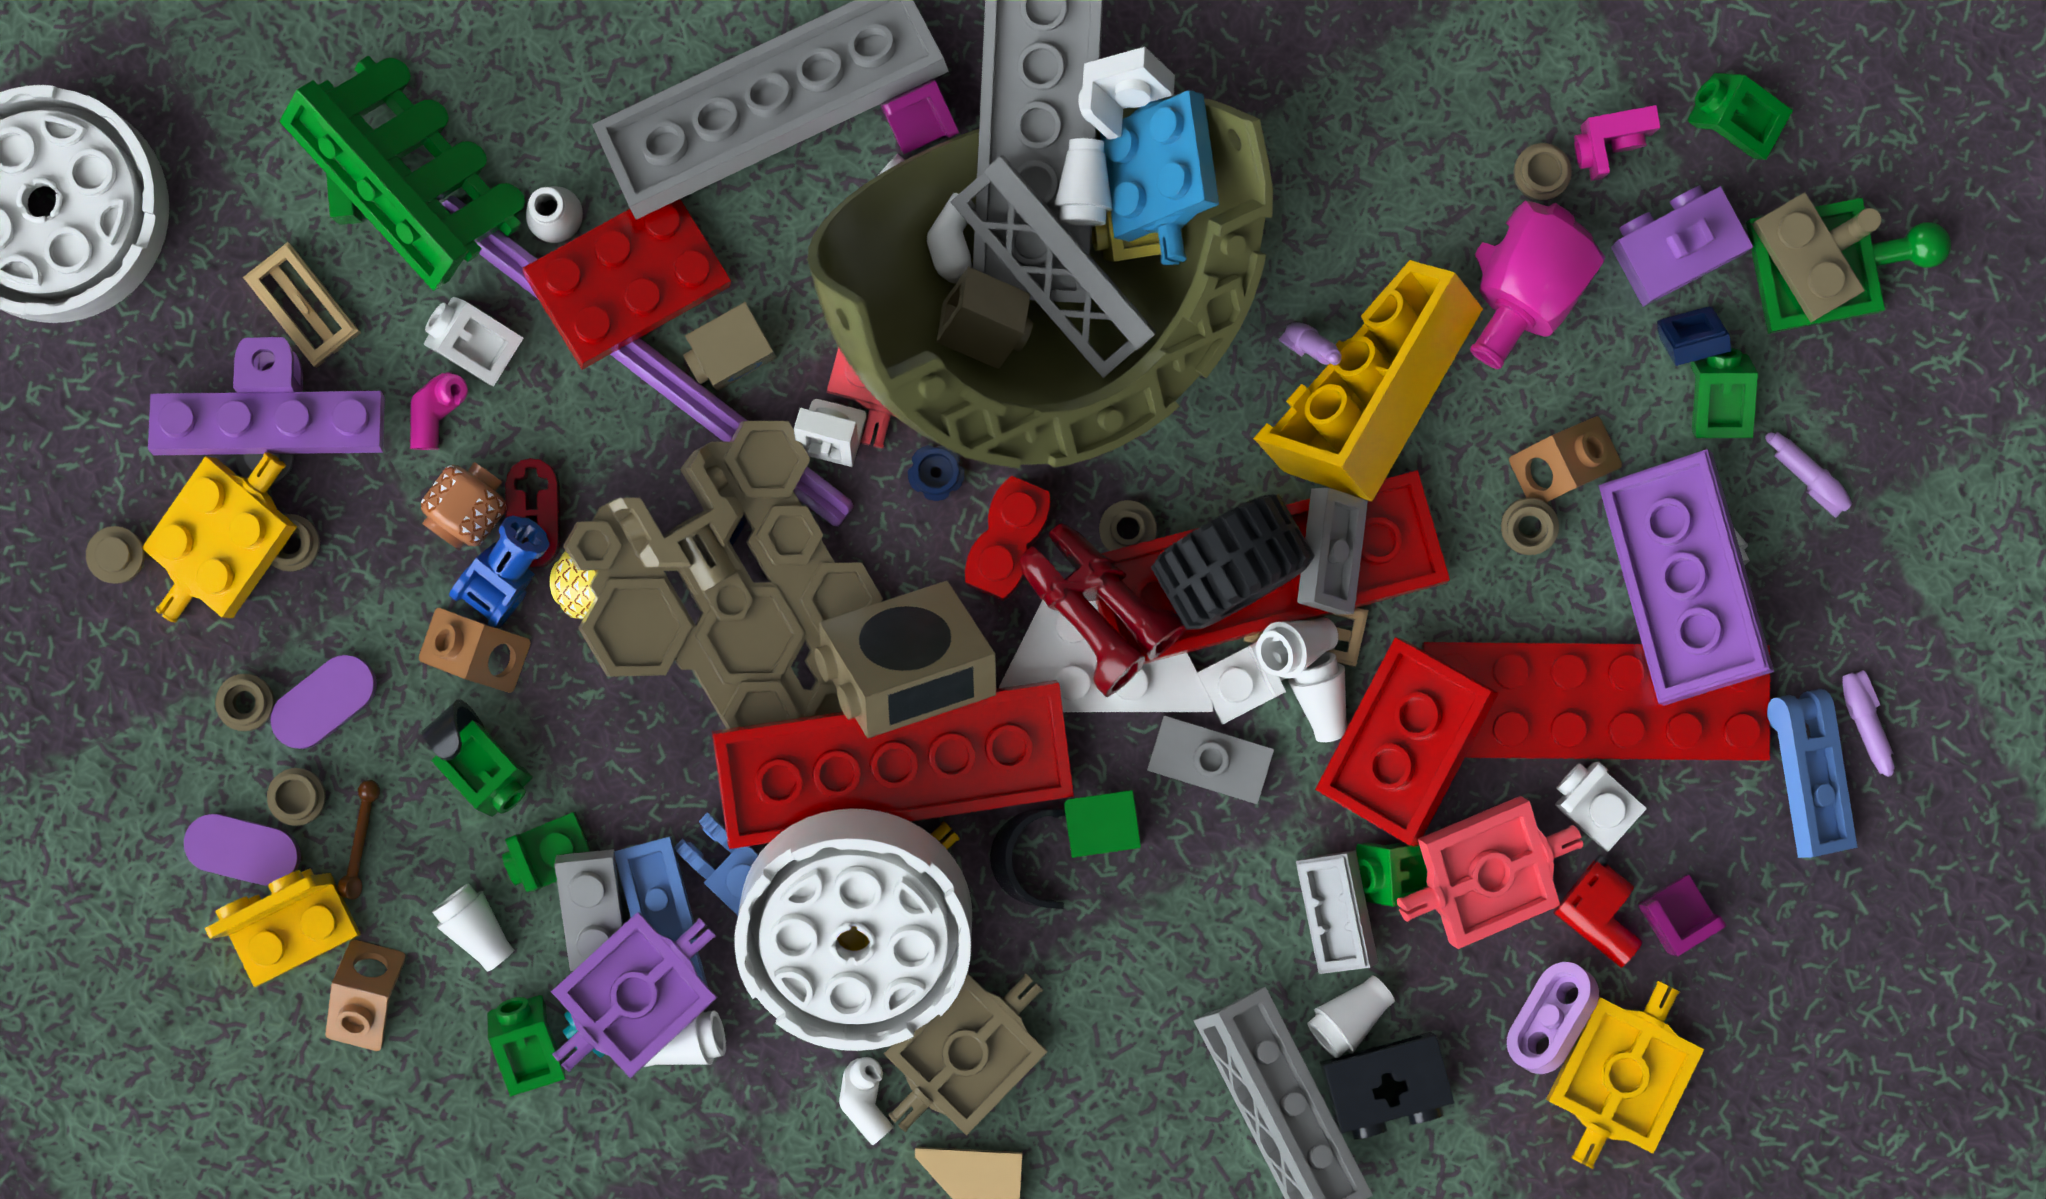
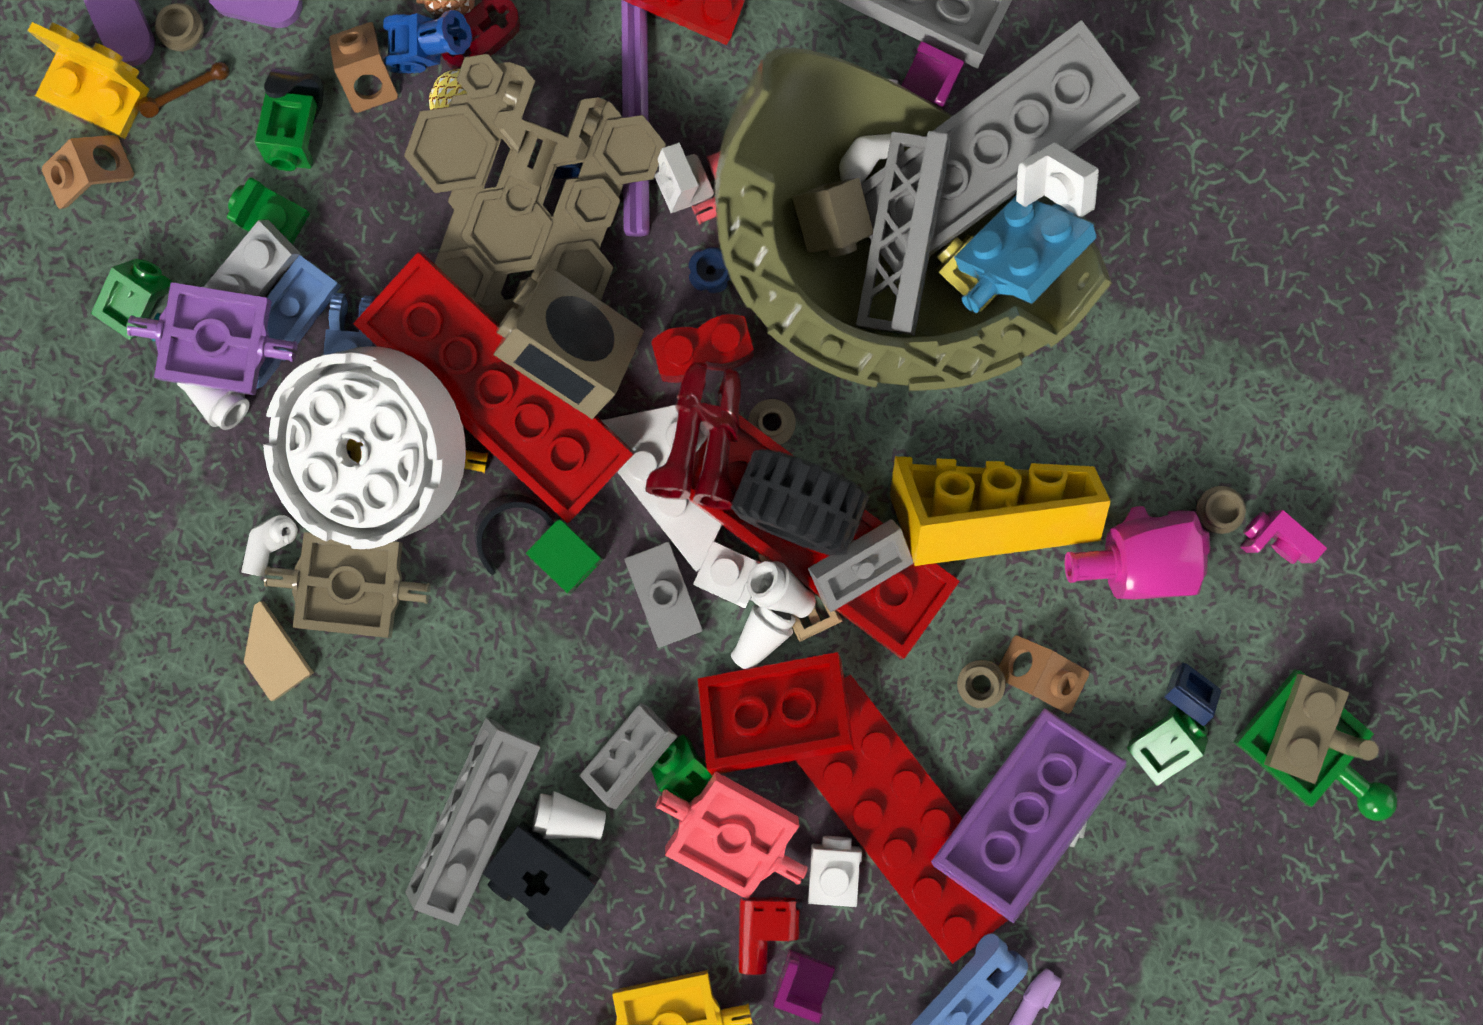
camera: 50 degrees right, 0 degrees up
(473, 926) = (182, 204): white cone -> none
(728, 348) = (685, 72): dark tan brick -> none
(1084, 184) = (973, 208): white cone -> none
(1305, 339) = (987, 440): lavender piece -> none
(1549, 1016) = (669, 948): lavender plate -> none
(1681, 244) = (1246, 638): medium lavender brick -> none
(1740, 113) = (1365, 609): green bracket -> none
(1819, 482) = (1161, 854): lavender piece -> none

